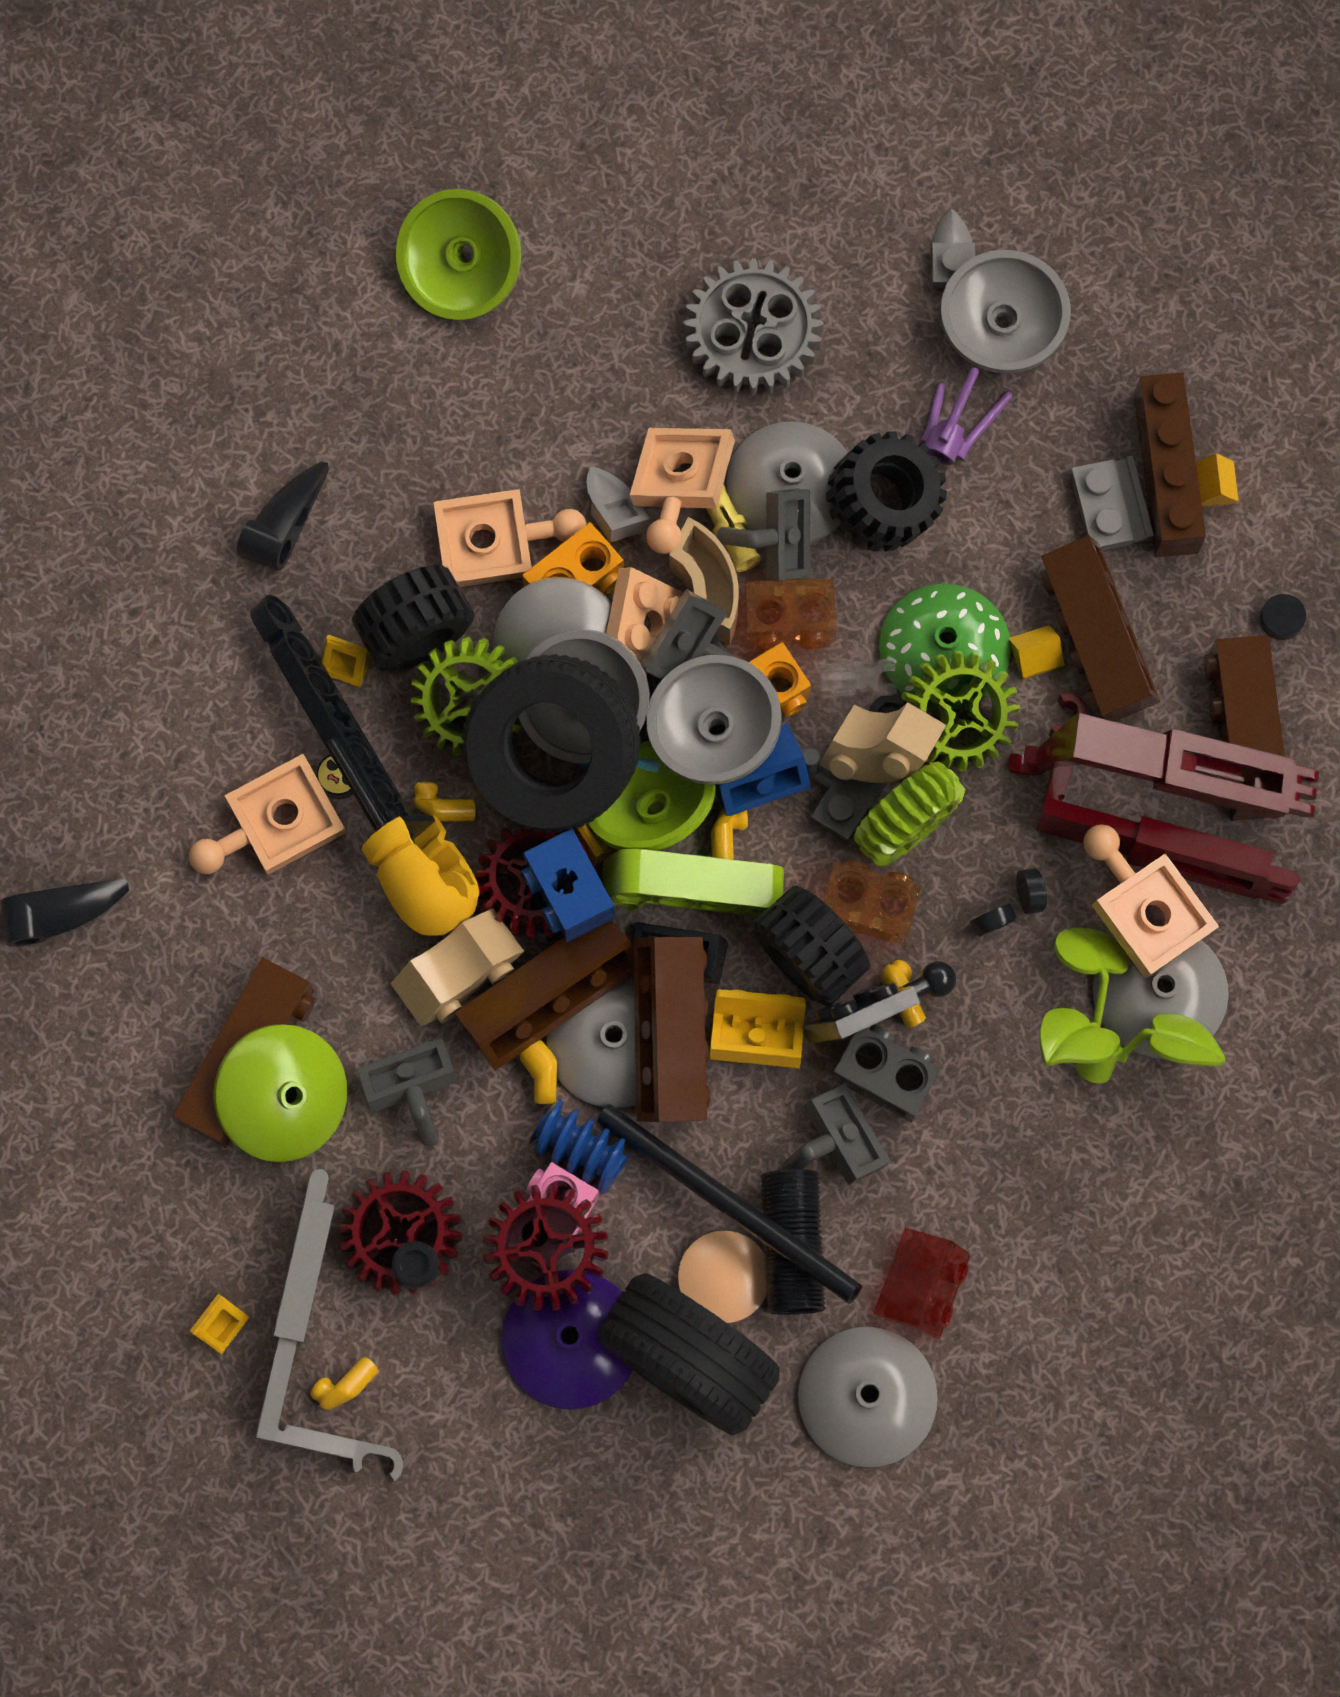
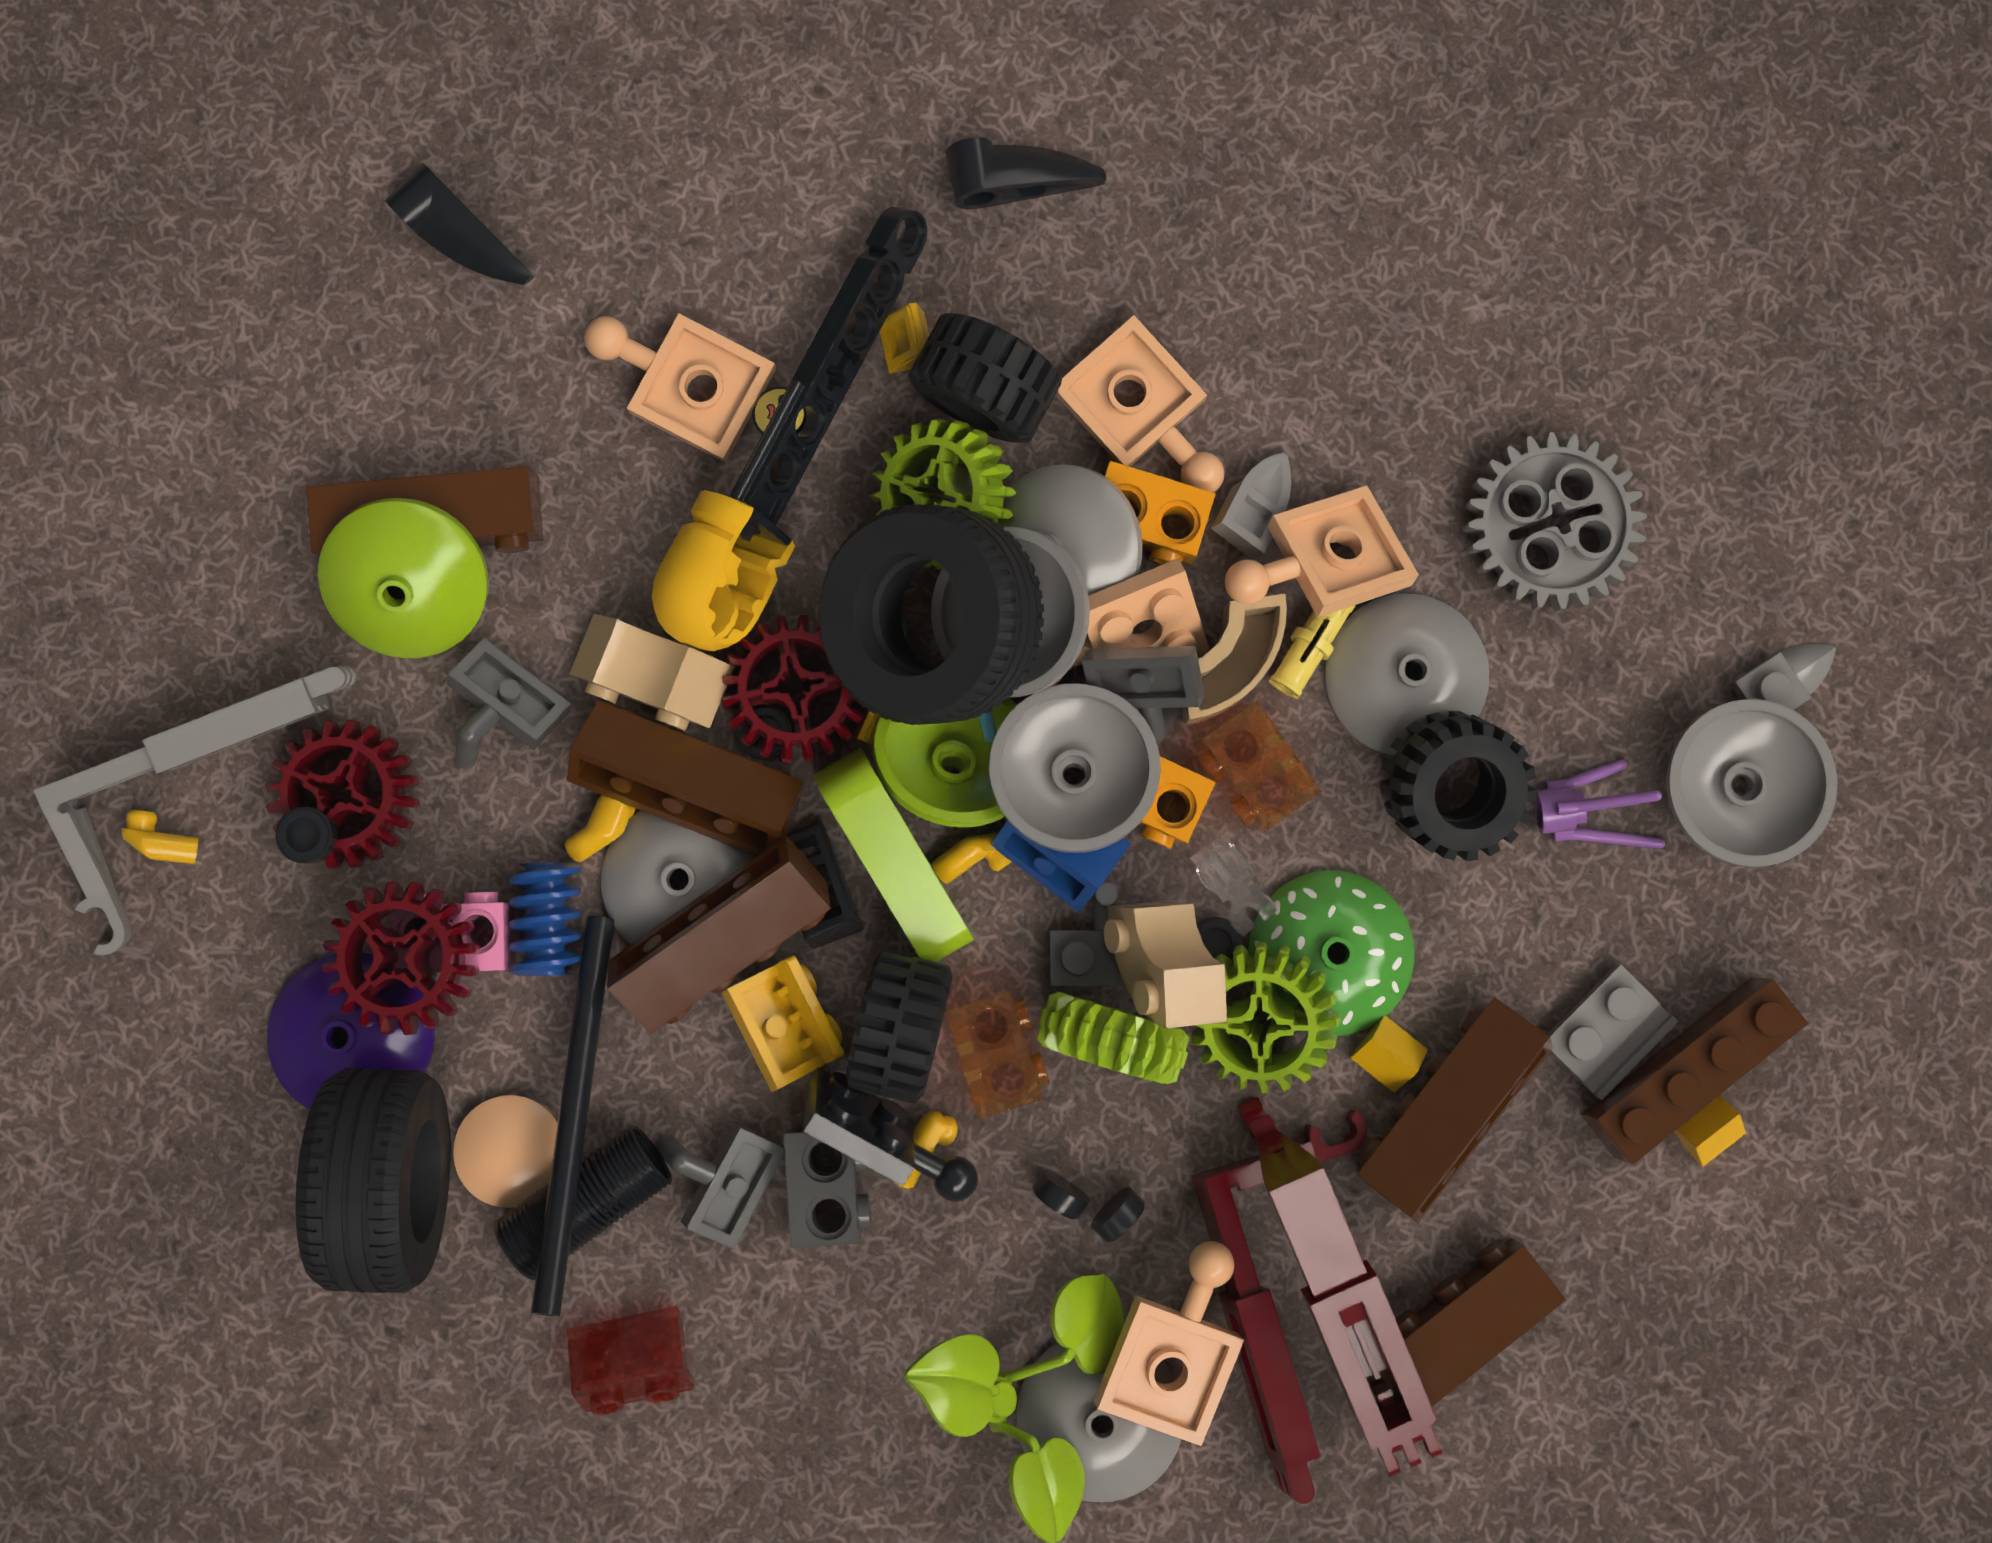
camera: 55 degrees right, 10 degrees up
(219, 1323) = (142, 672): yellow slope -> none
(432, 257) = (1401, 139): lime dish -> none
(445, 809) = (810, 536): yellow arm -> none
(562, 861) = (793, 764): blue brick -> none
(784, 537) = (1334, 710): dark grey plate -> none
(862, 1431) = (511, 1355): light grey dish -> none
(1283, 617) = (1602, 1295): black tile -> none

